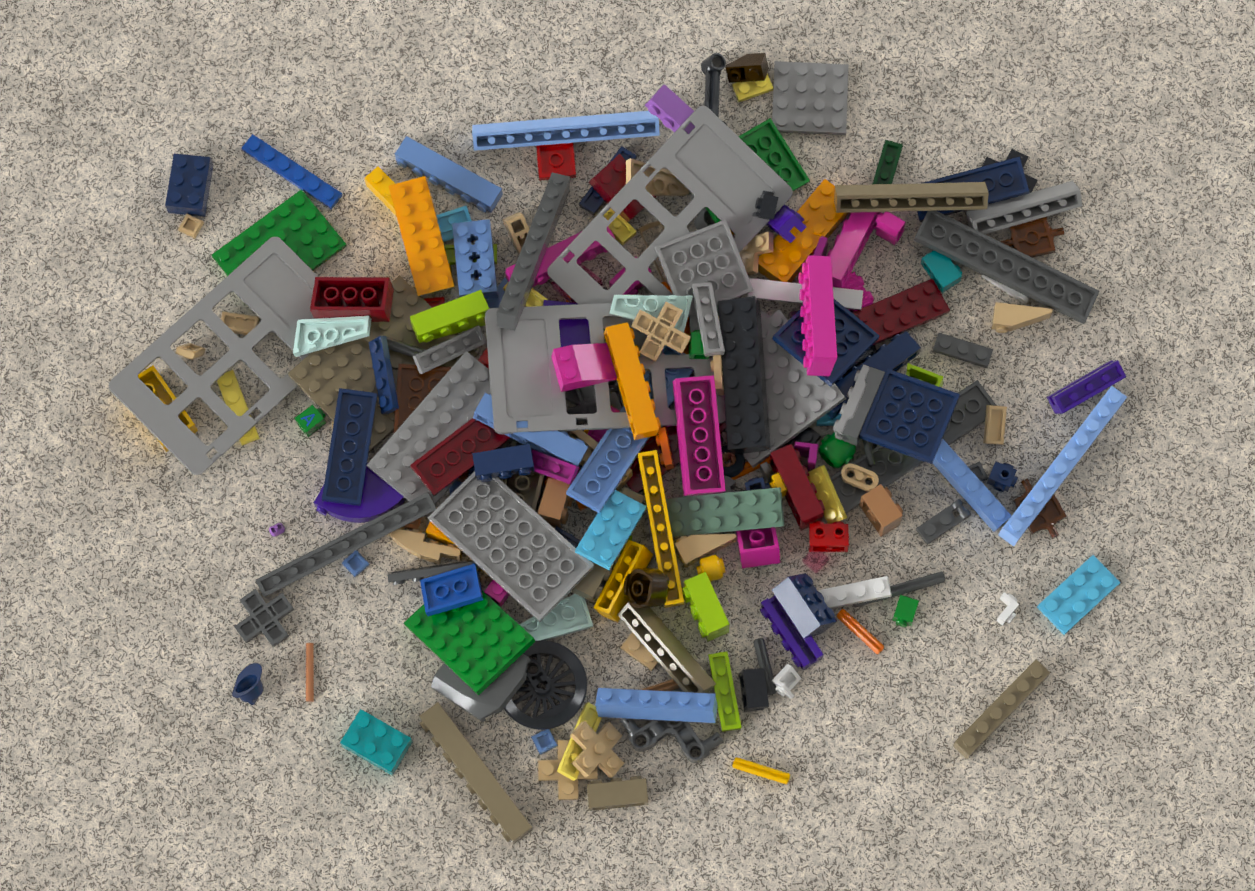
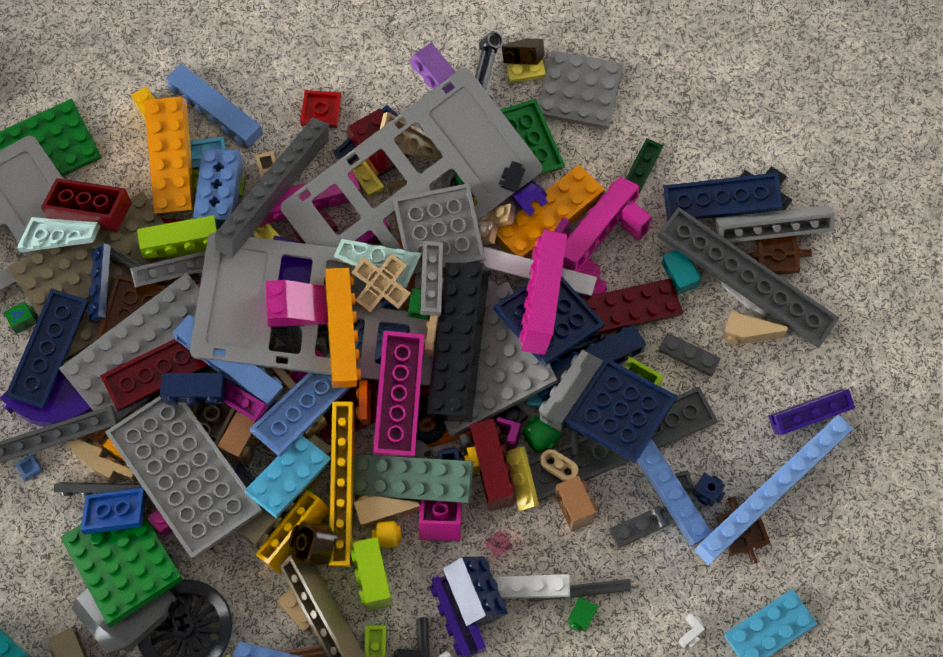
camera: 10 degrees right, 5 degrees down
(292, 171) = (68, 81): blue plate -> none
(565, 130) = (334, 81): light blue brick -> none
(566, 618) = (221, 561): light aqua wing -> none
(828, 537) = (515, 522): red brick -> none
(860, 631) = (531, 629): orange axle -> none
(911, 197) = (661, 193): dark tan brick -> none
(995, 424) = (710, 435): tan tile -> none

